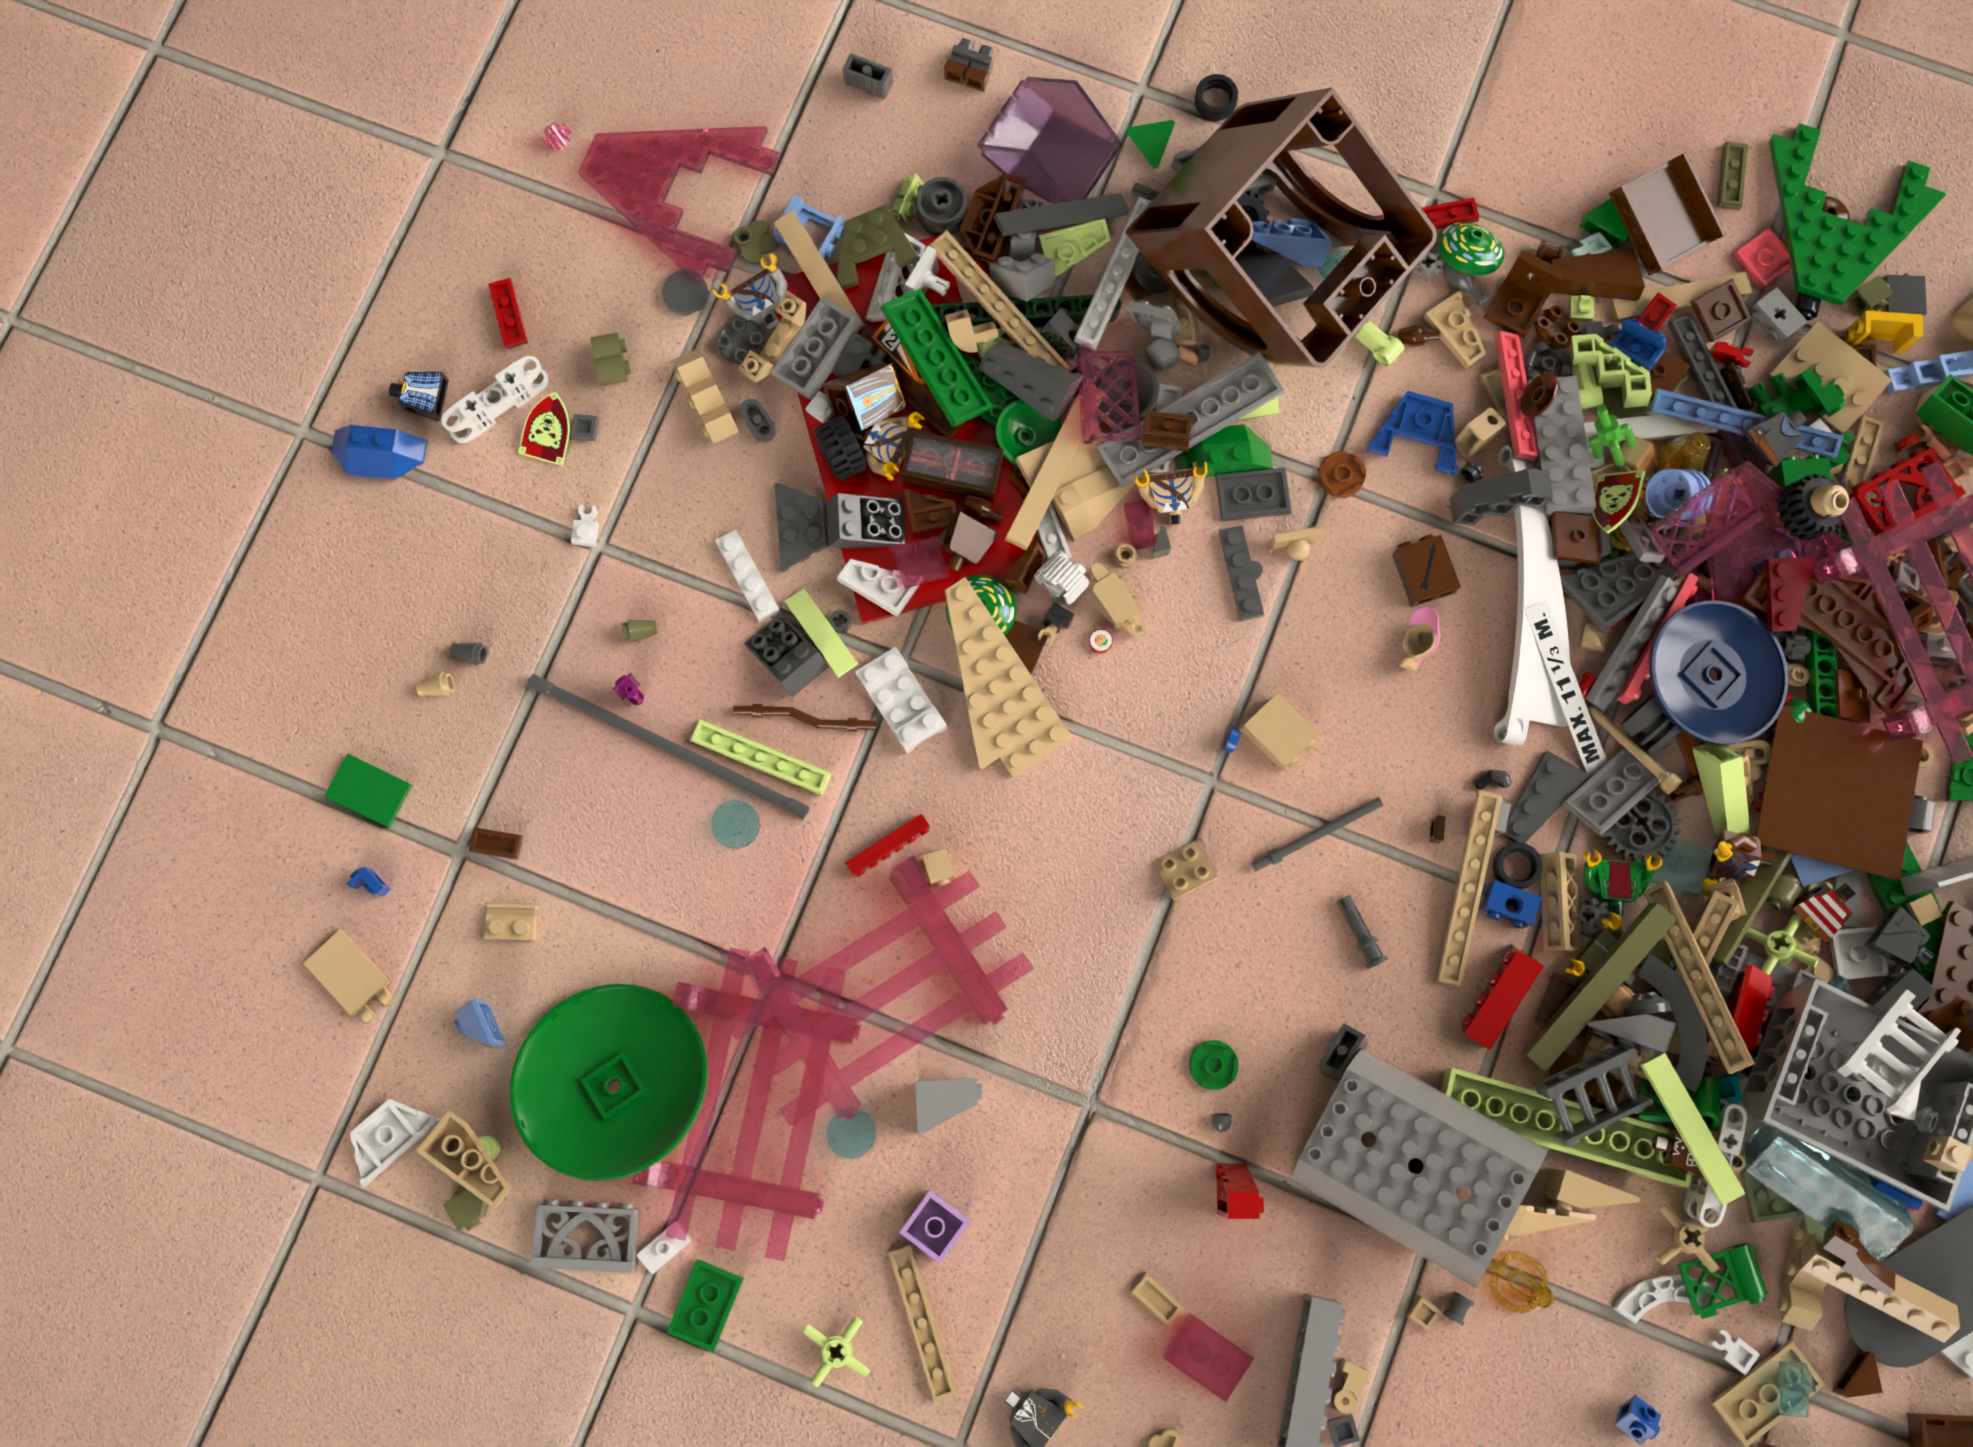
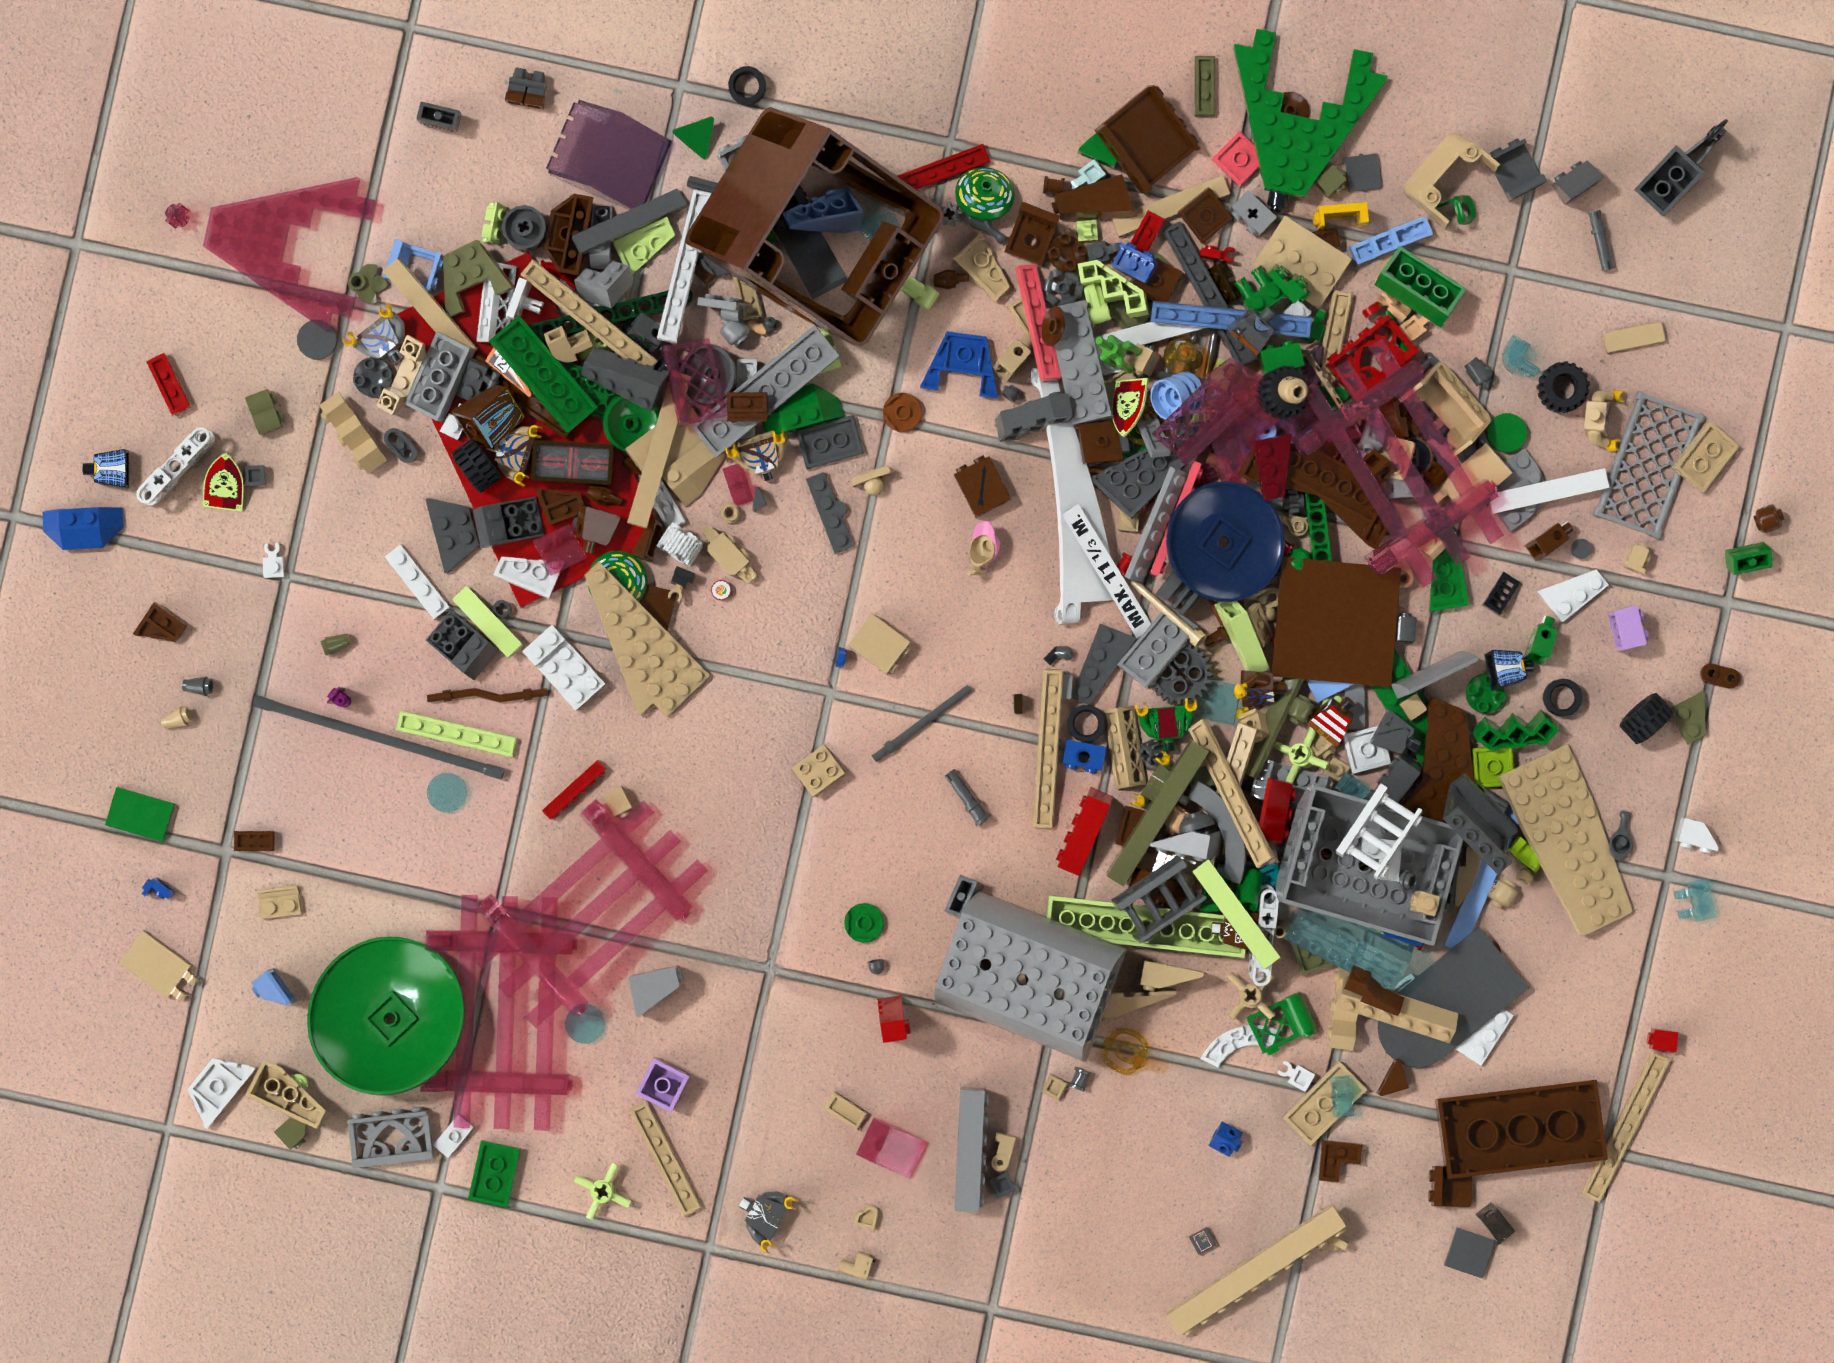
camera: 15 degrees left, 10 degrees up
(440, 575) = (160, 624): none -> reddish brown wing
(1851, 697) = (1342, 540): reddish brown piece -> none

